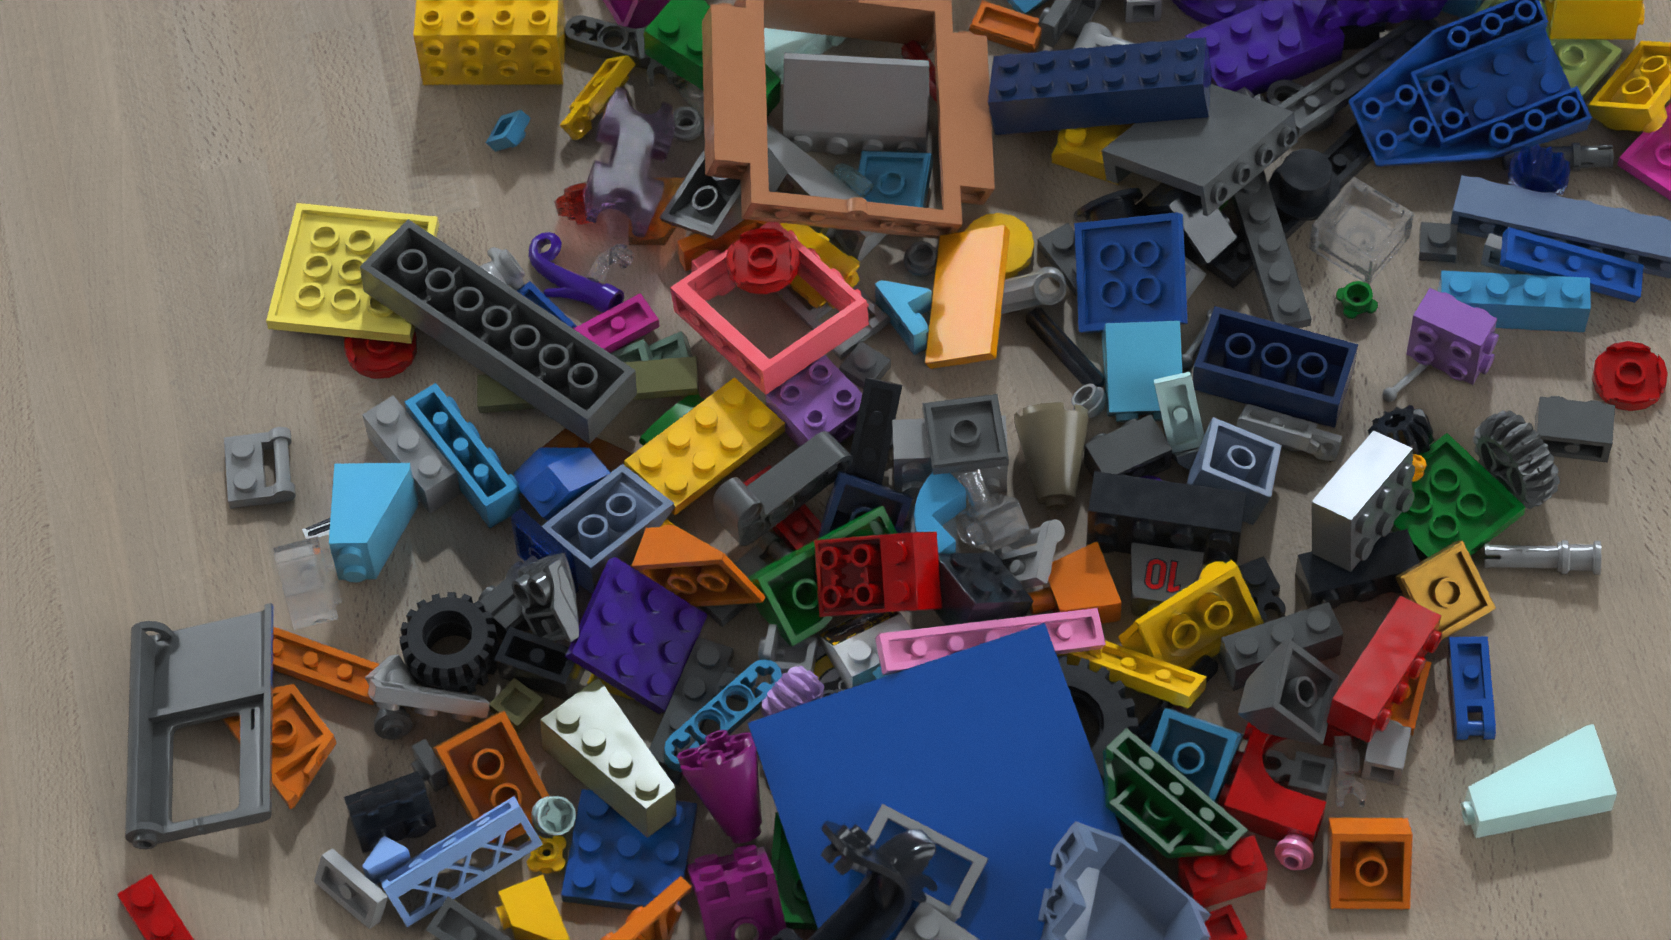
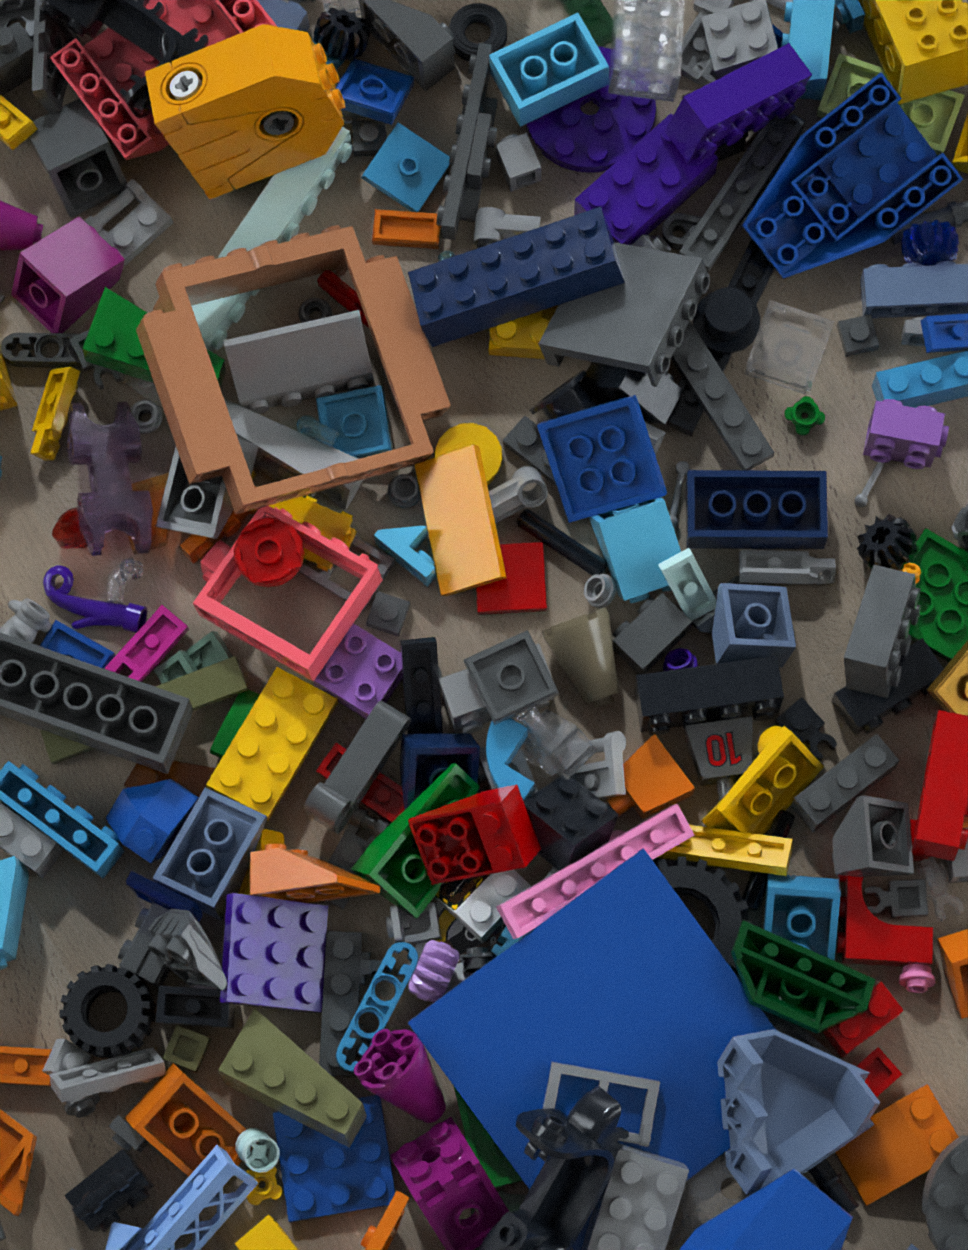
camera: 15 degrees left, 15 degrees up
(1009, 375) = (524, 586): none -> red tile

